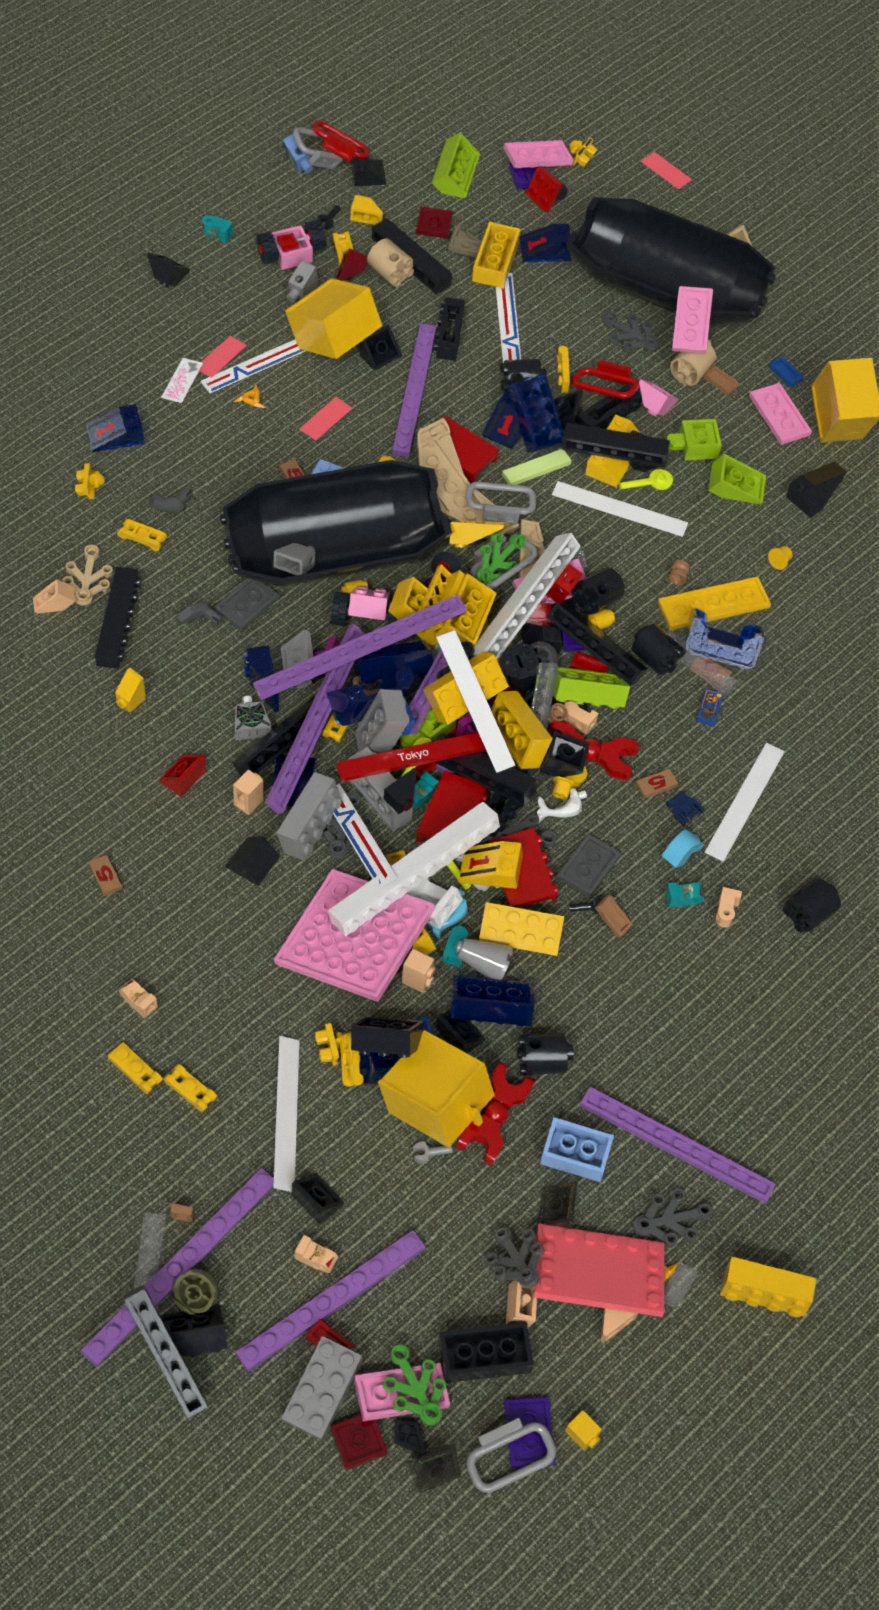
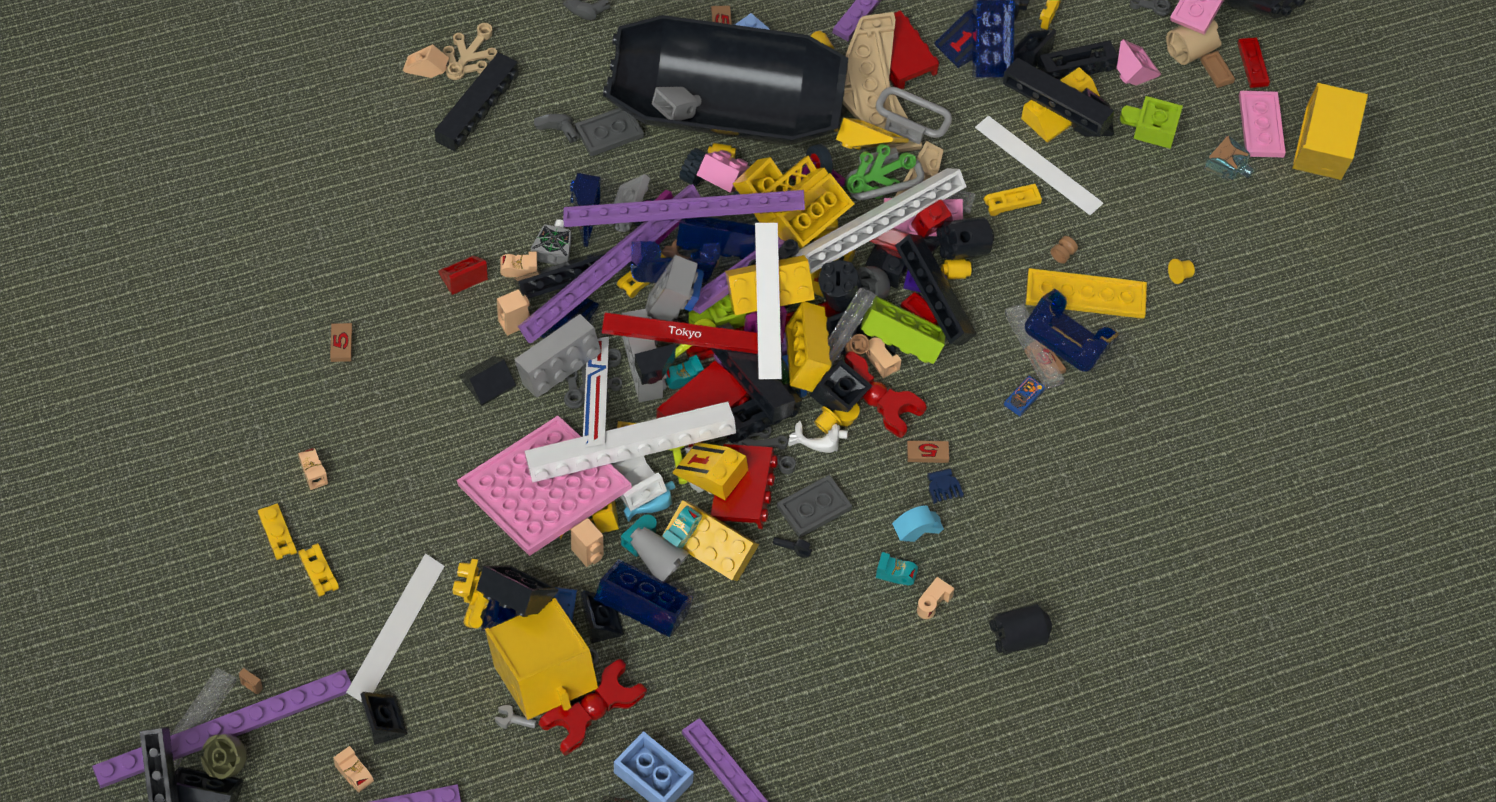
camera: 25 degrees right, 0 degrees up
(130, 691) = (451, 176): yellow slope -> none
(142, 534) = (542, 30): yellow plate -> none
(229, 749) = (518, 265): none -> light nougat leg
(498, 925) = (683, 527): none -> teal leg
(536, 467) = (972, 94): yellowish green tile -> none
(544, 1053) = (668, 668): black cylinder -> none
(610, 372) = (1096, 20): red bar -> none
(613, 915) = (811, 563): medium nougat tile -> none
(615, 544) = (1012, 199): none -> yellow plate
(657, 649) = (996, 318): black cylinder -> none
(658, 479) = (1094, 149): neon yellow piece -> none
(736, 481) = (1176, 177): lime slope -> none
(744, 802) = (1010, 503): white sticker -> none
(747, 365) = (1253, 62): none -> red plate
(771, 452) = (1229, 160): none -> clear light blue torso
(786, 371) = (1293, 83): blue tile -> none
(815, 488) = (1255, 213): black wedge -> none

